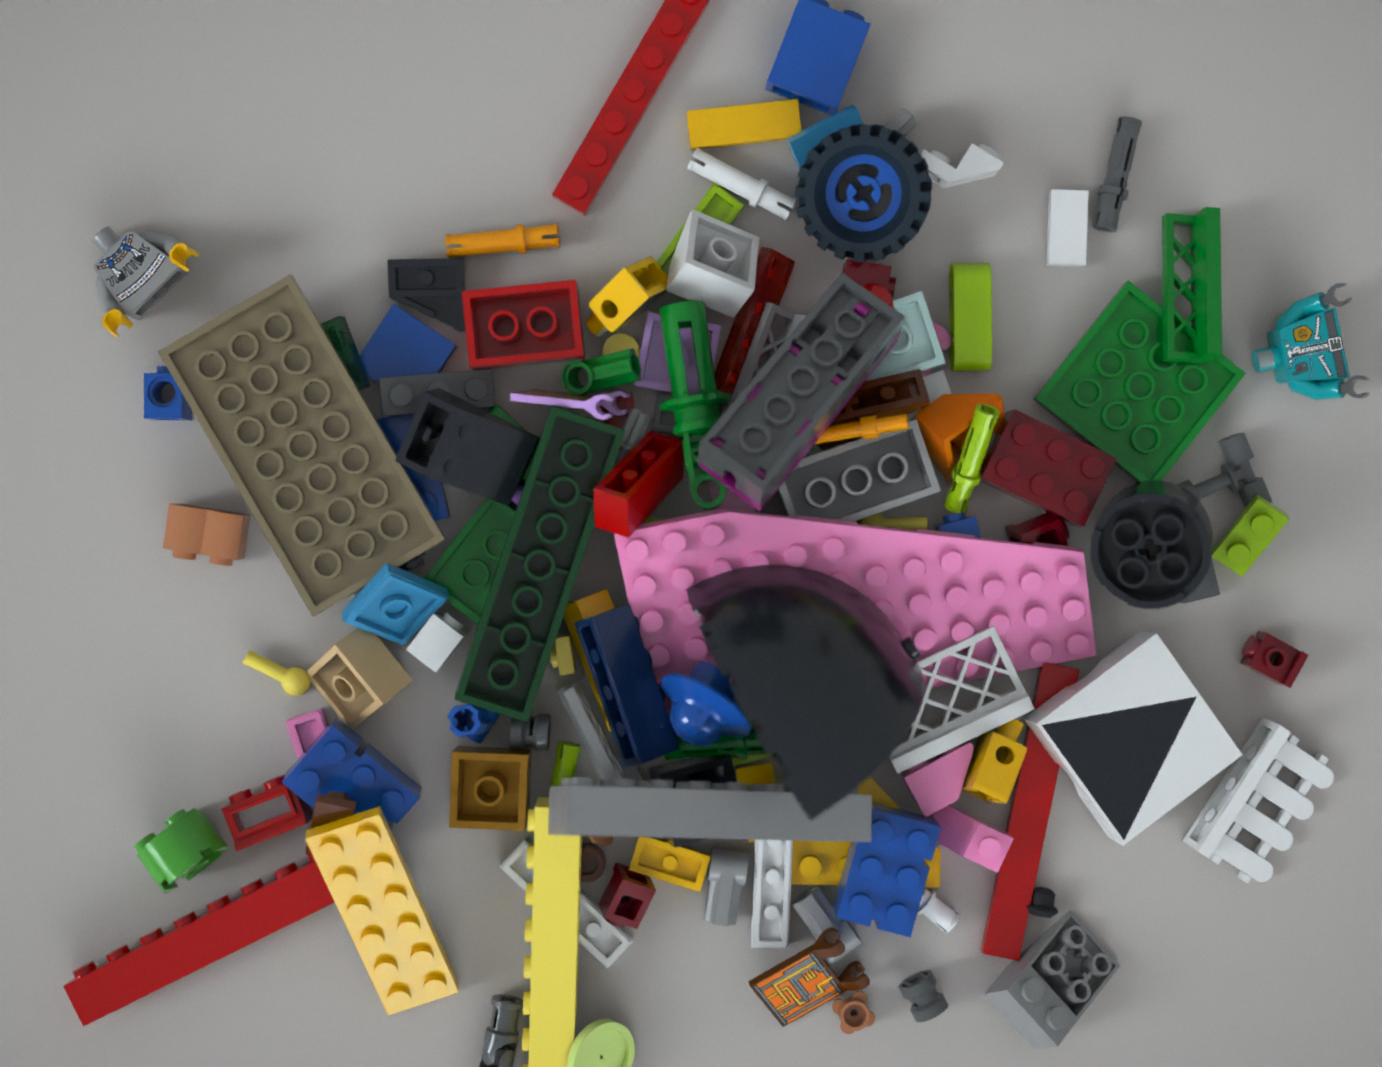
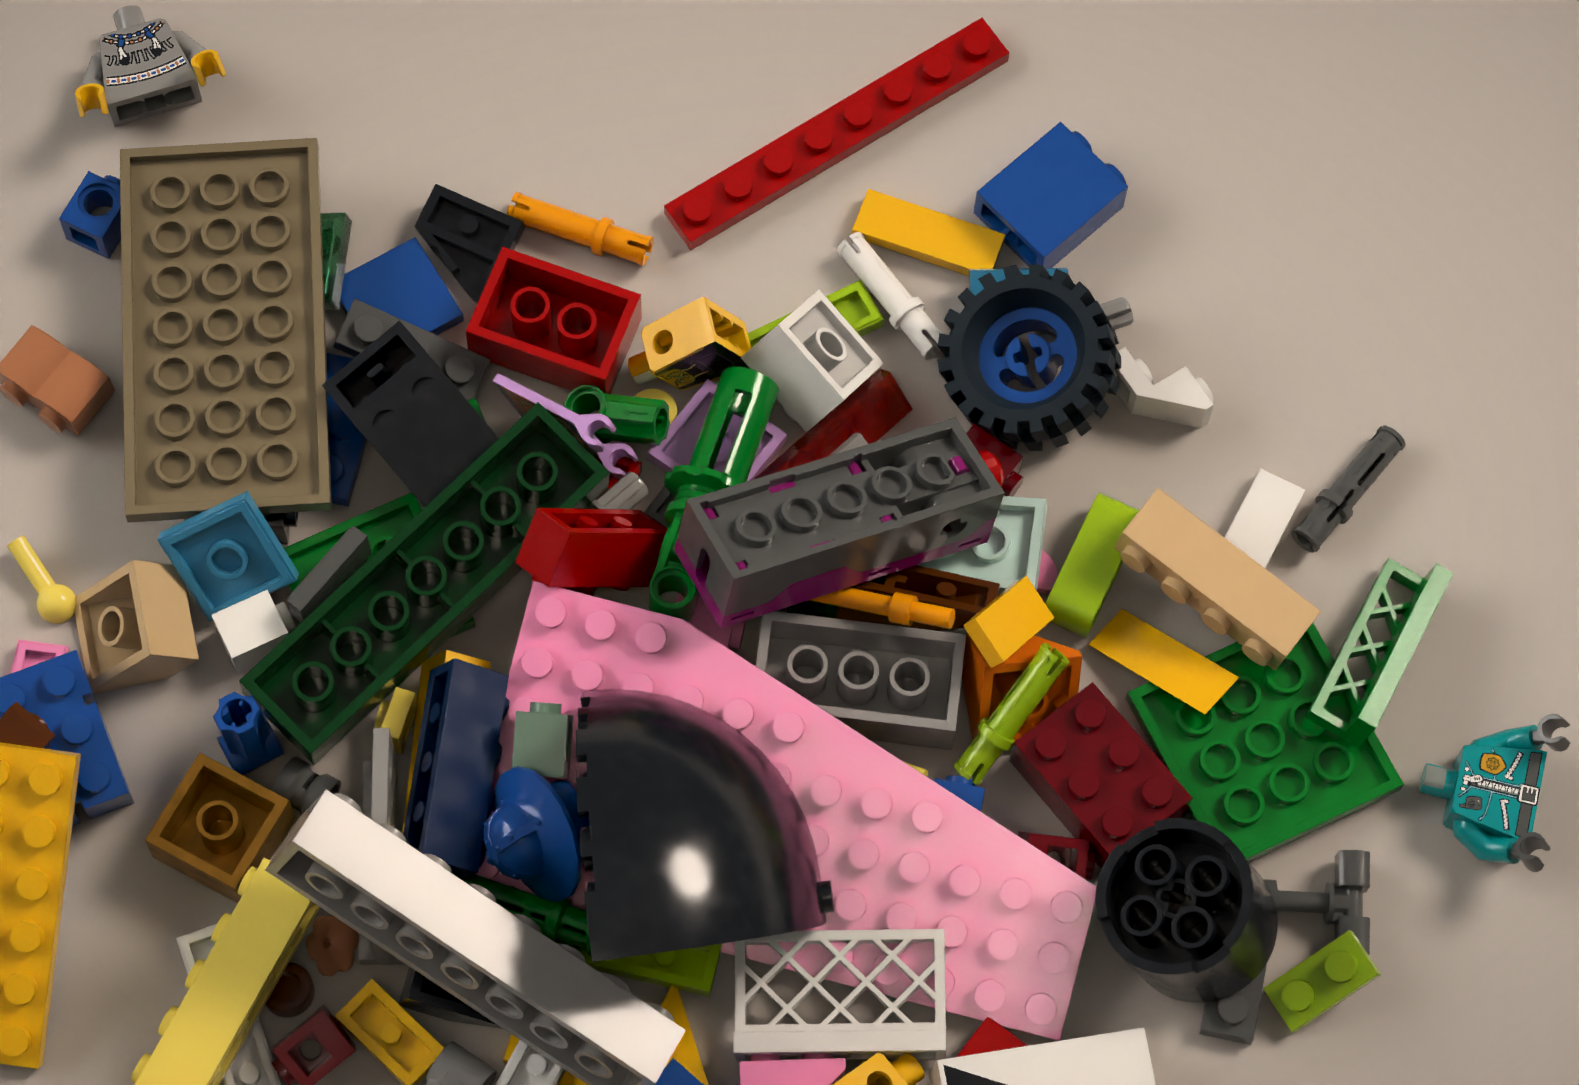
camera: 20 degrees right, 20 degrees down
(469, 586) = (330, 573): none -> dark grey tile
(677, 641) = (543, 740): none -> sand green brick
(943, 399) = (1008, 621): none -> yellow tile
(1049, 364) = (1163, 661): none -> yellow sticker
(1065, 295) = (1216, 580): none -> tan brick

